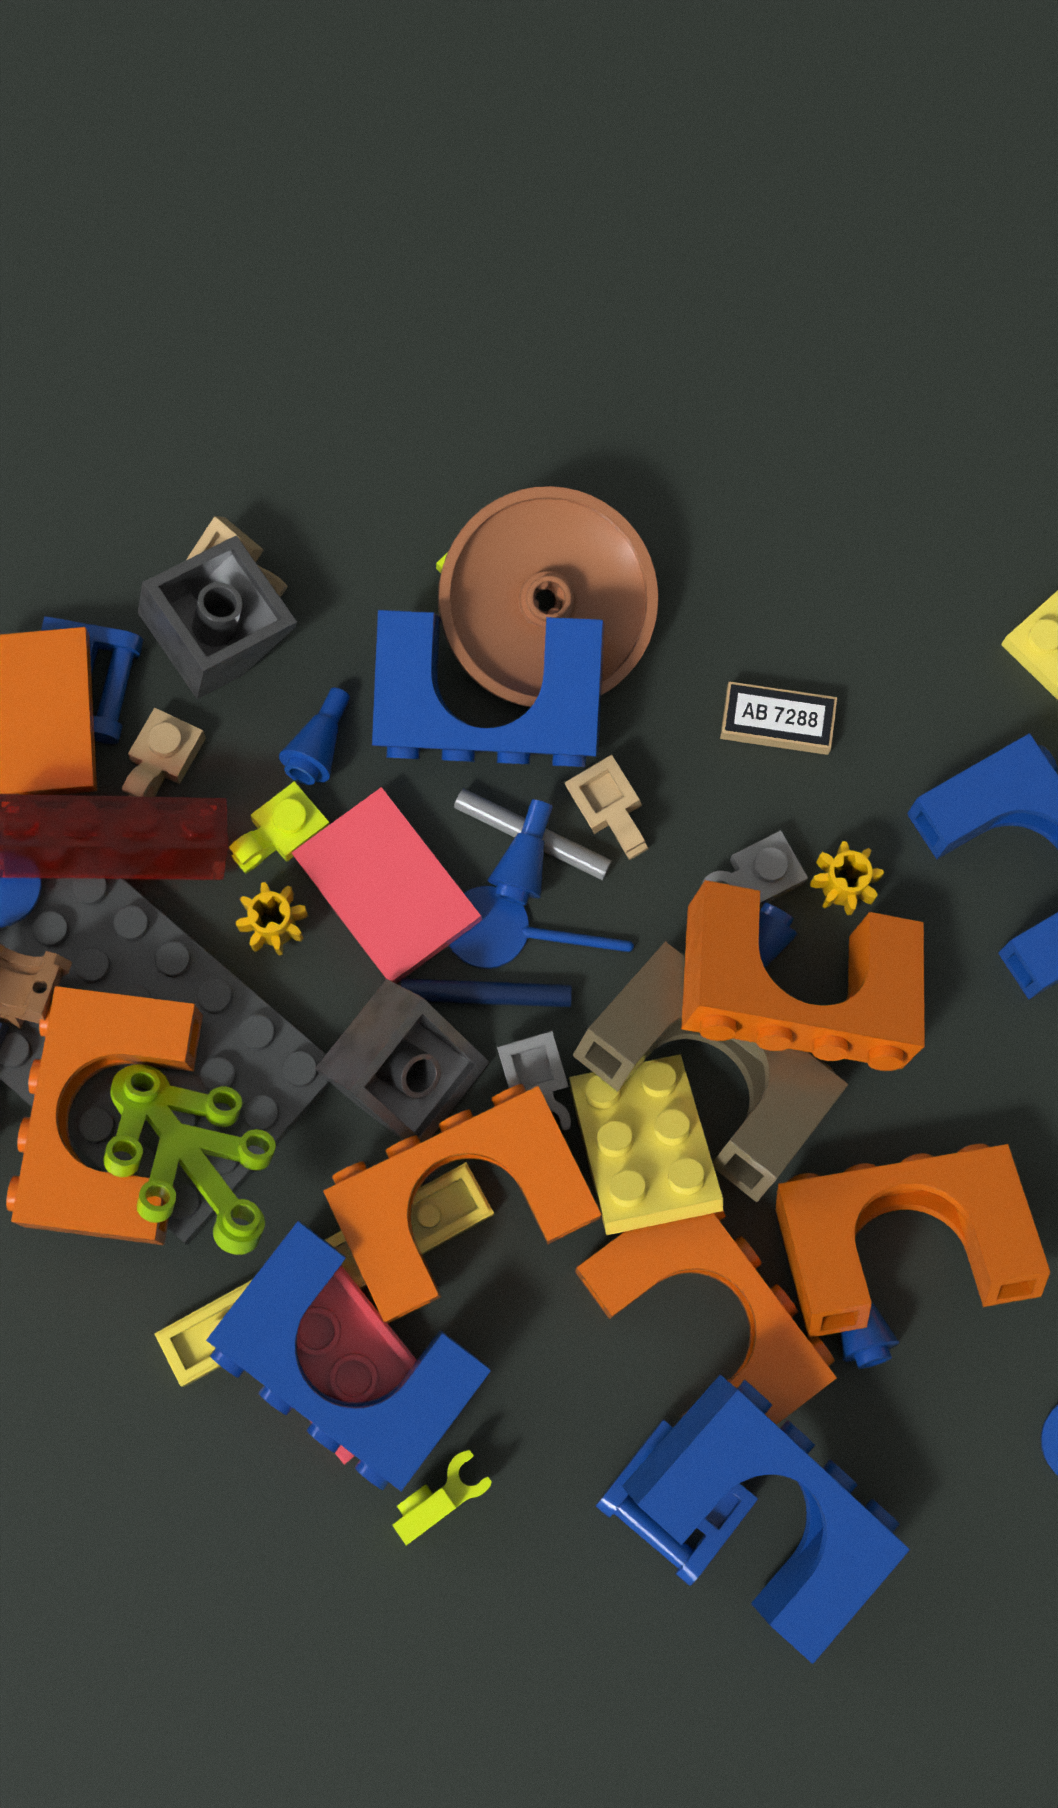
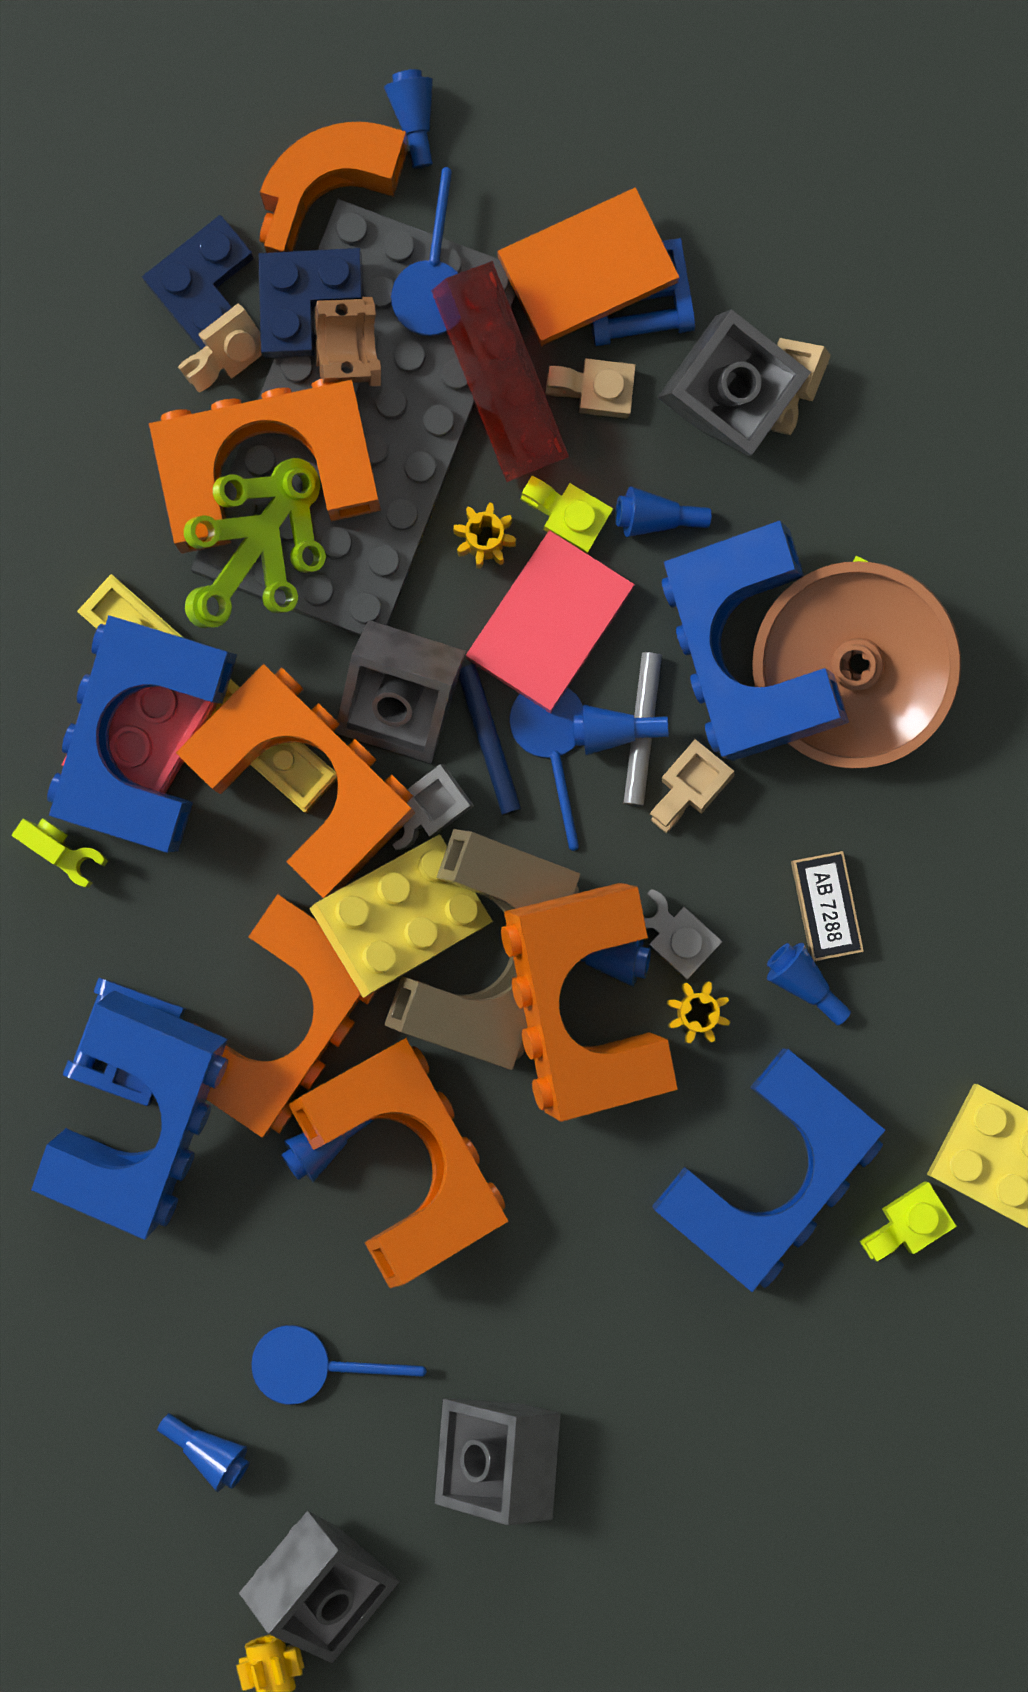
camera: 70 degrees right, 10 degrees up
(837, 768) = (798, 974): none -> blue cone

